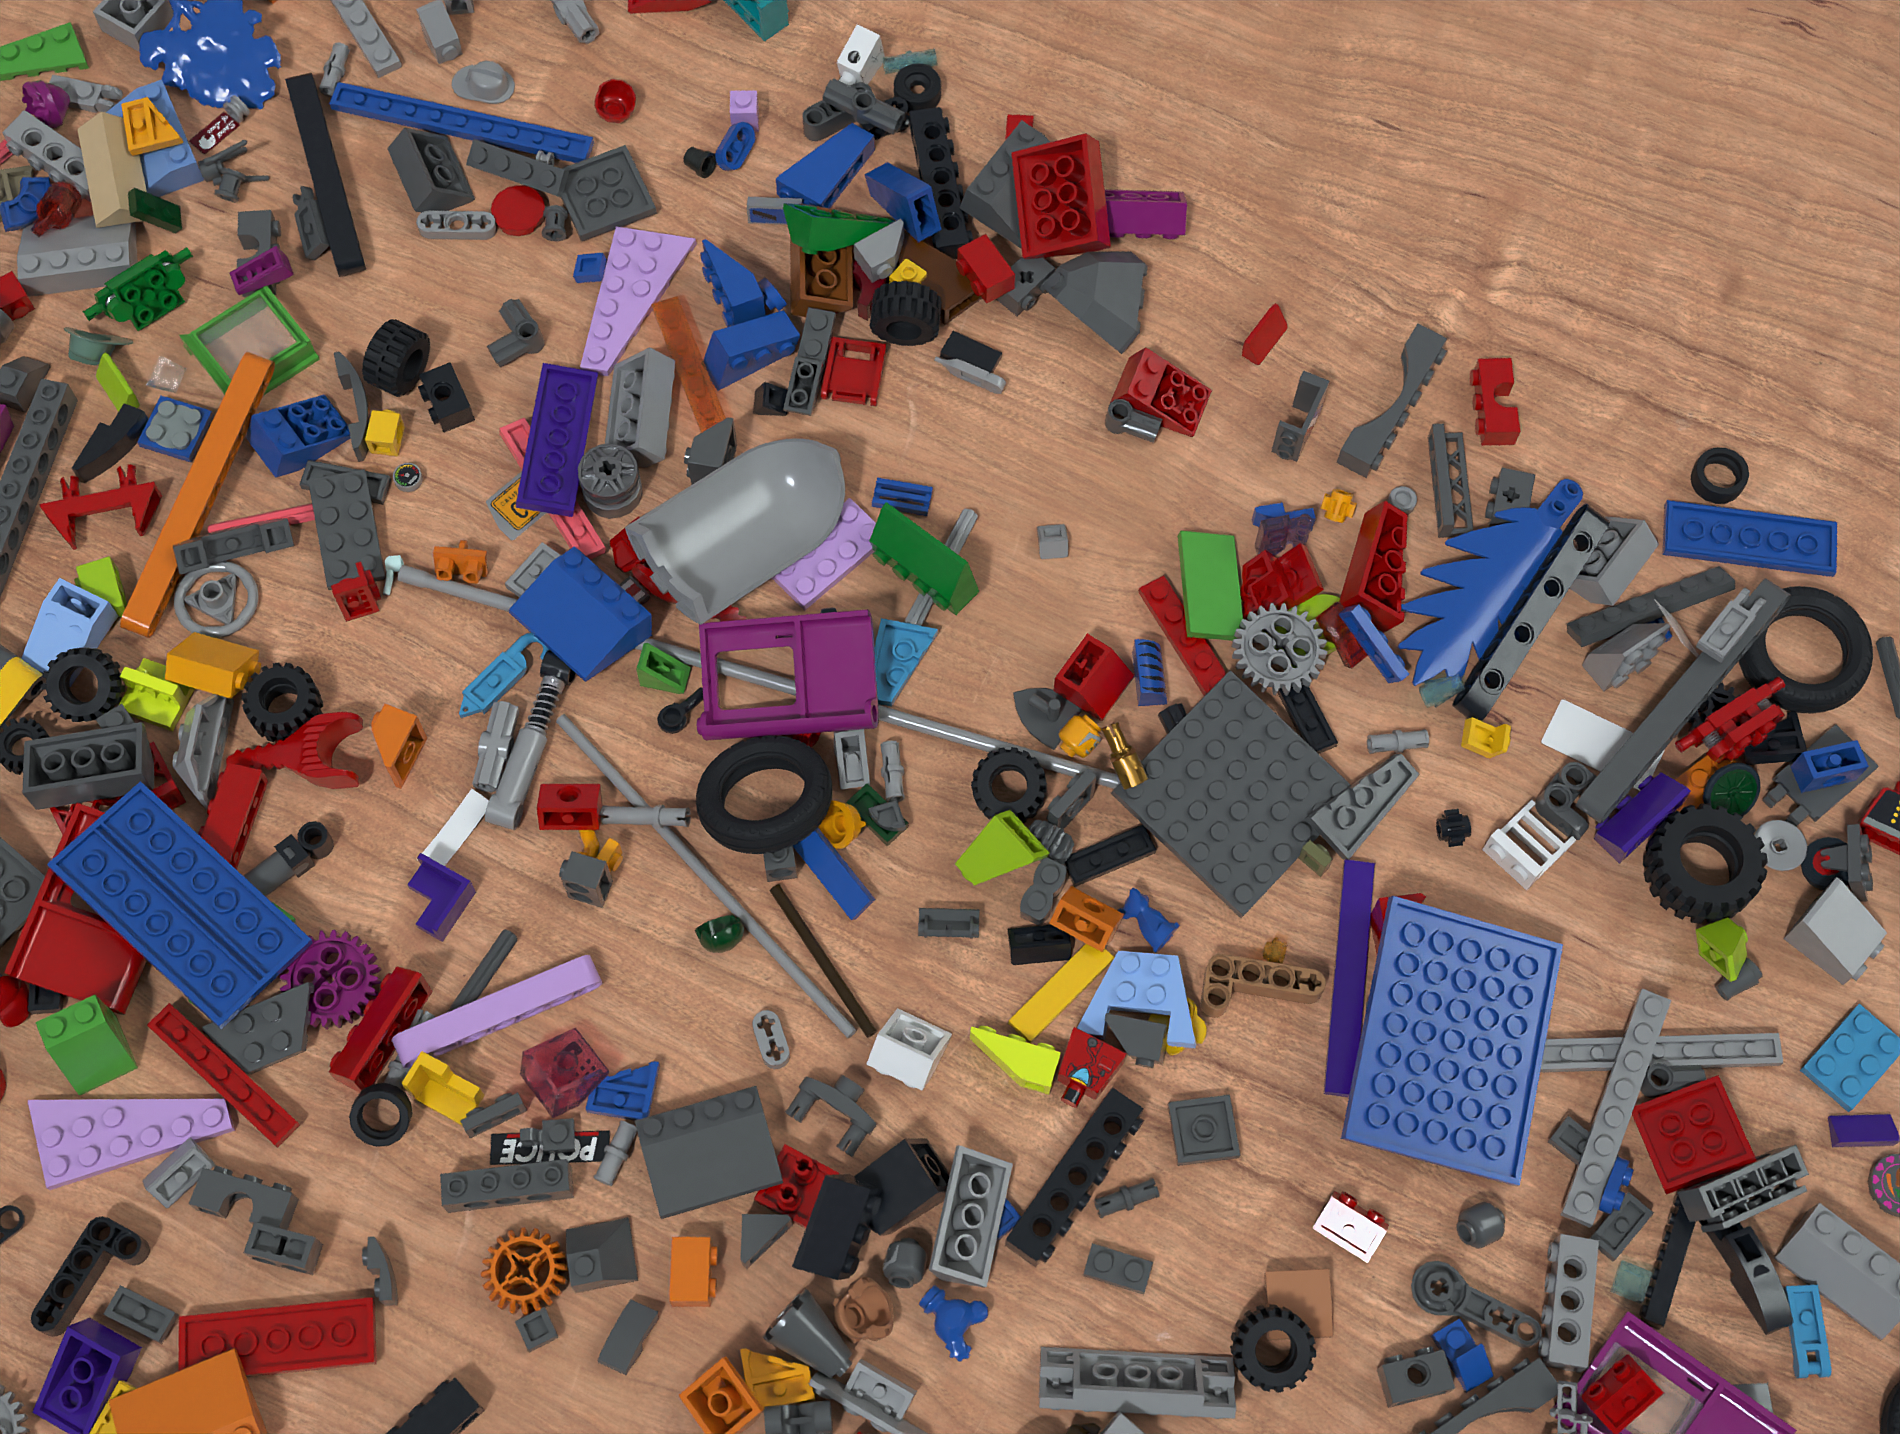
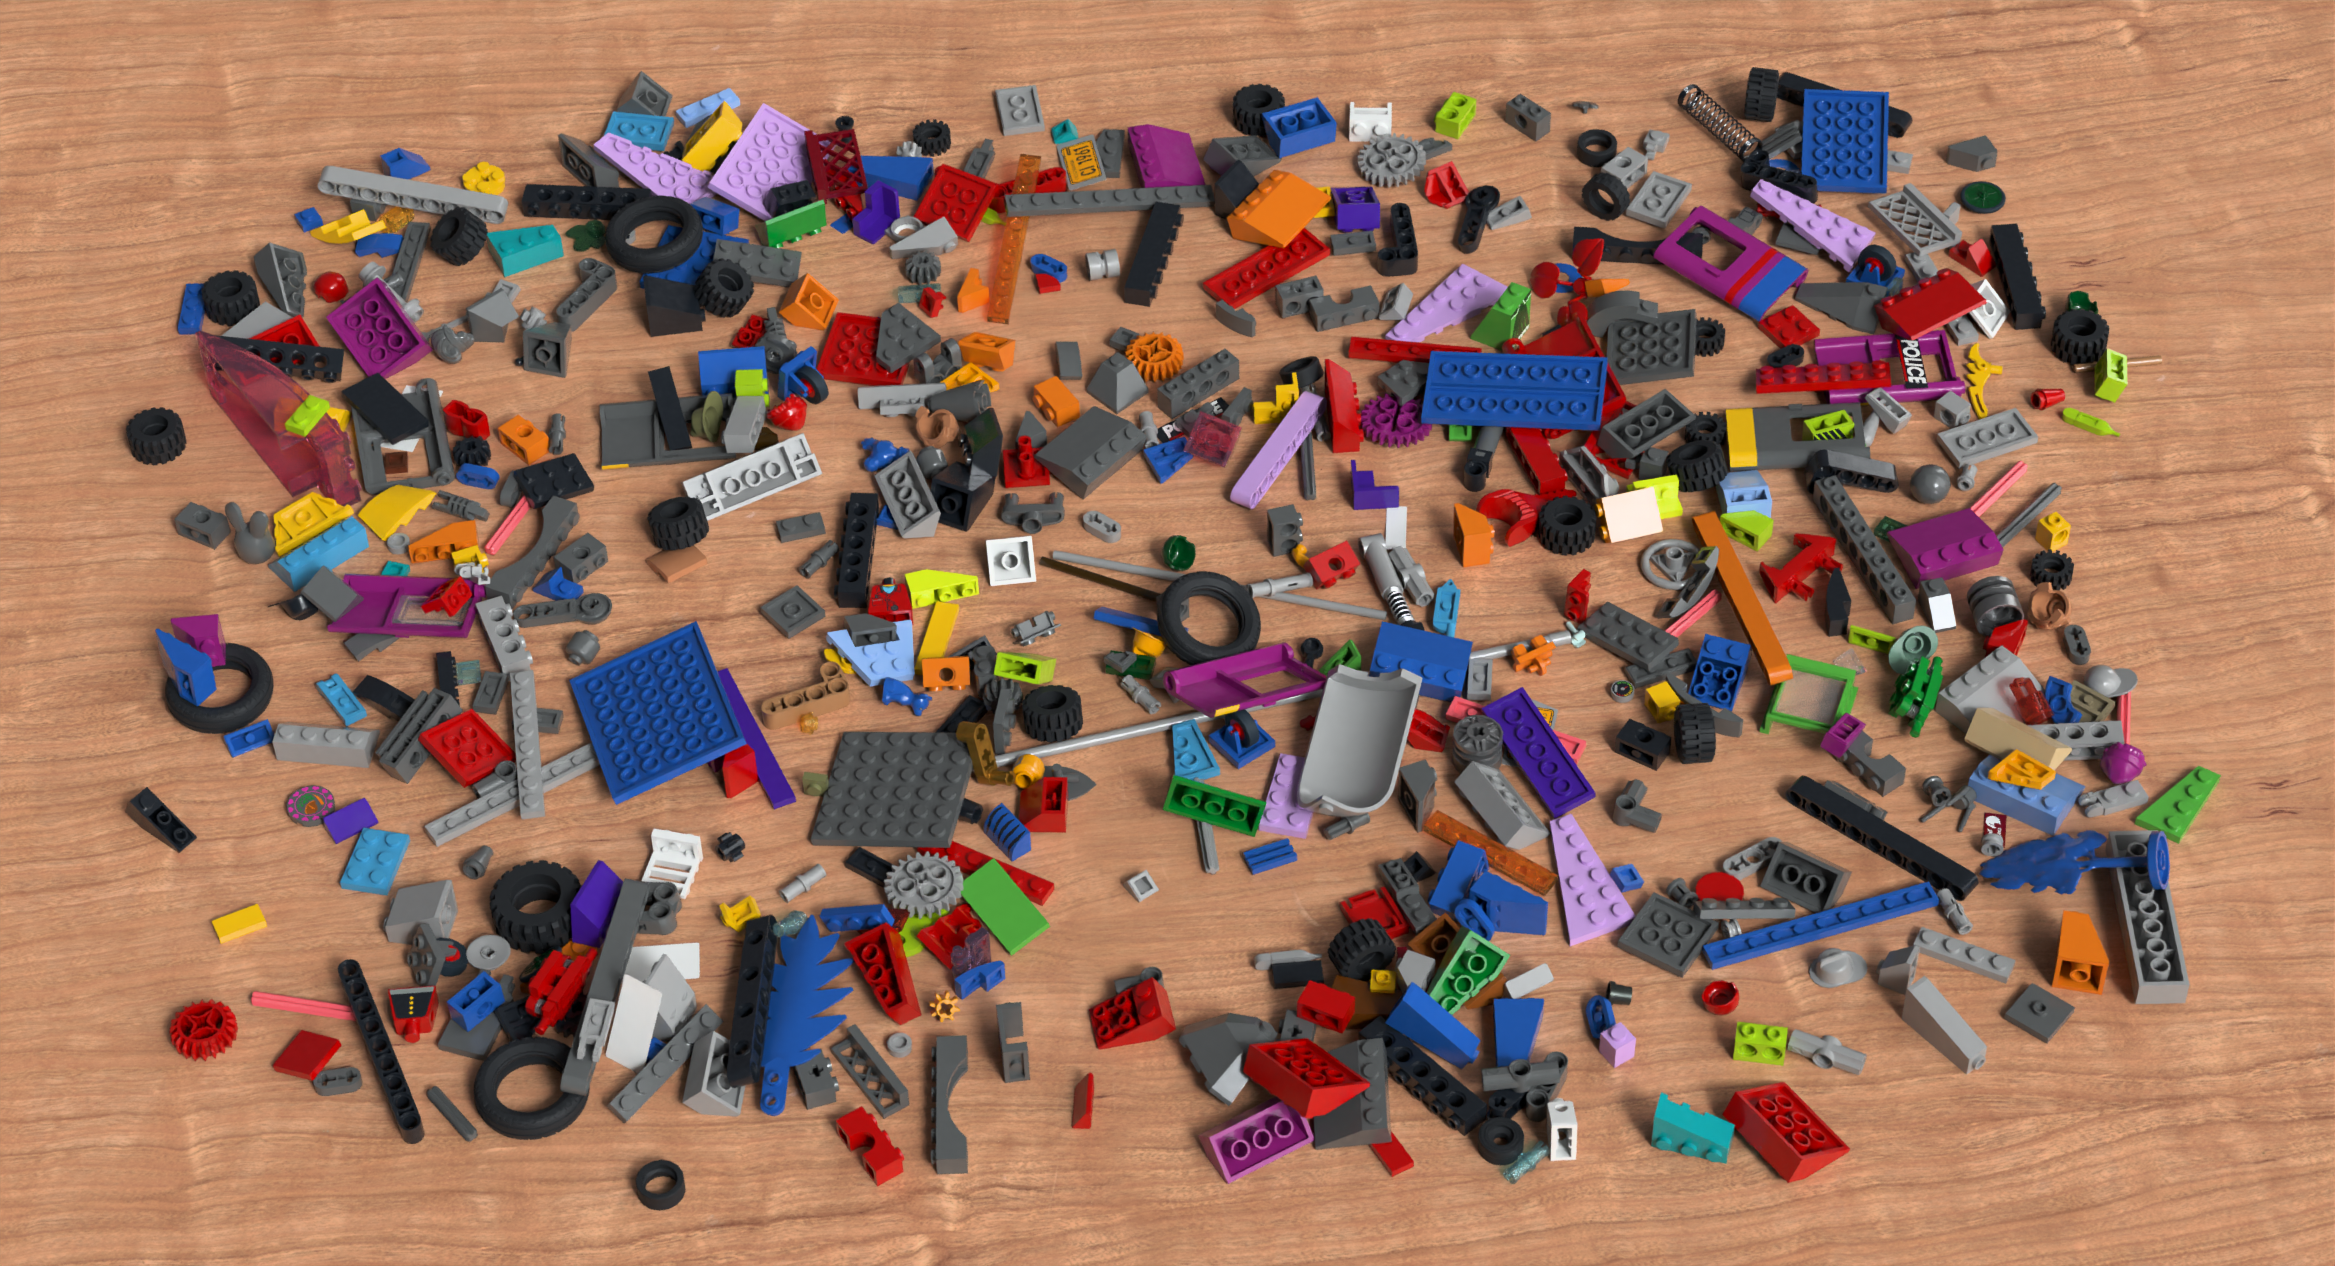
camera: 150 degrees right, 20 degrees down
(154, 210) = (1964, 740): dark green plate -> none
(175, 429) = (1807, 637): piece -> none
(611, 854) = (1283, 557): light orange plate -> none
(620, 42) = (1760, 1043): none -> lime brick
(1351, 1225) = (665, 613): bracket -> none
(1361, 807) = (801, 828): wing -> none
(1612, 1196) = (505, 712): blue plate -> none
(1723, 946) = (495, 859): lime slope -> none
(1750, 538) = (612, 1158): blue tile -> none

